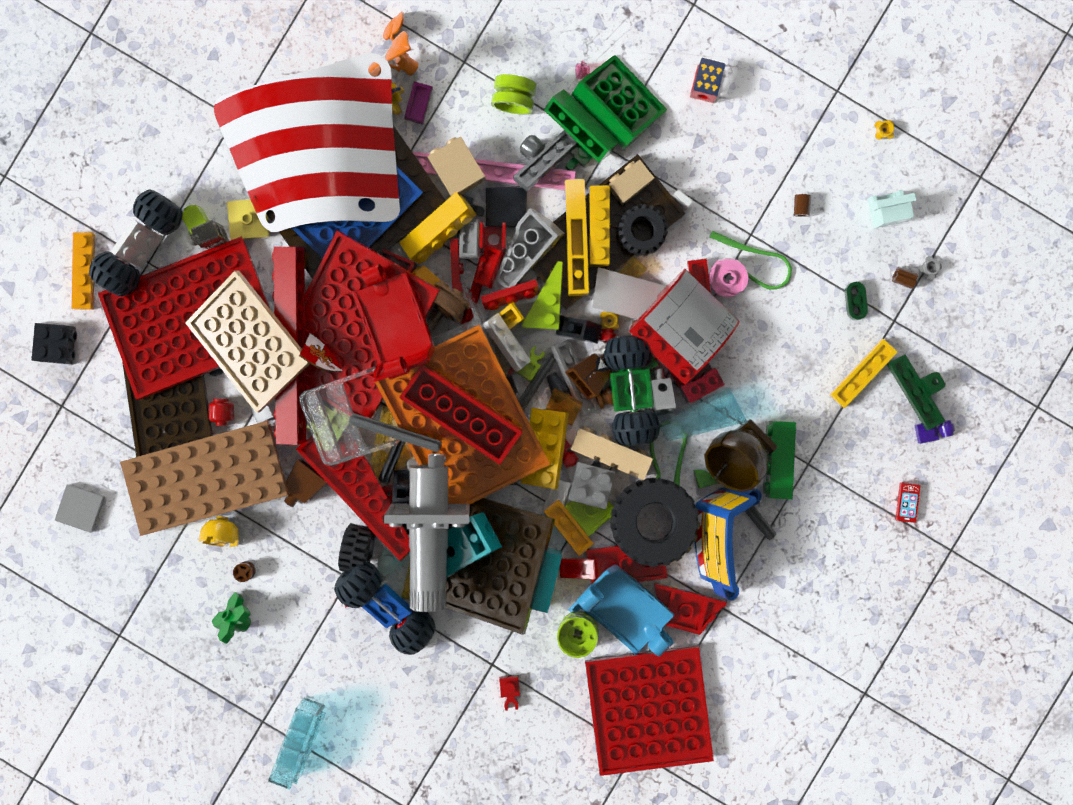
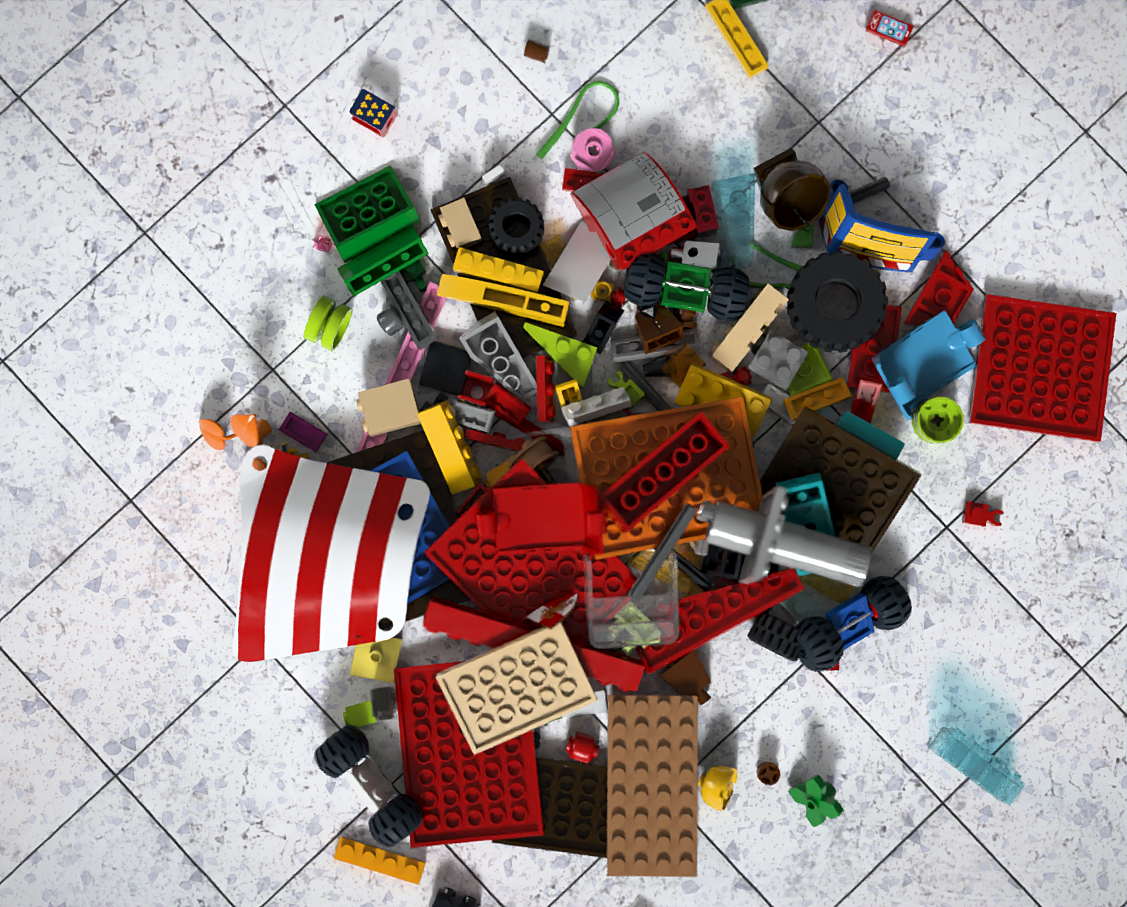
camera: 75 degrees left, 5 degrees down
(781, 461) = (824, 154): green brick -> none
(858, 301) = (656, 21): dark green plate -> none

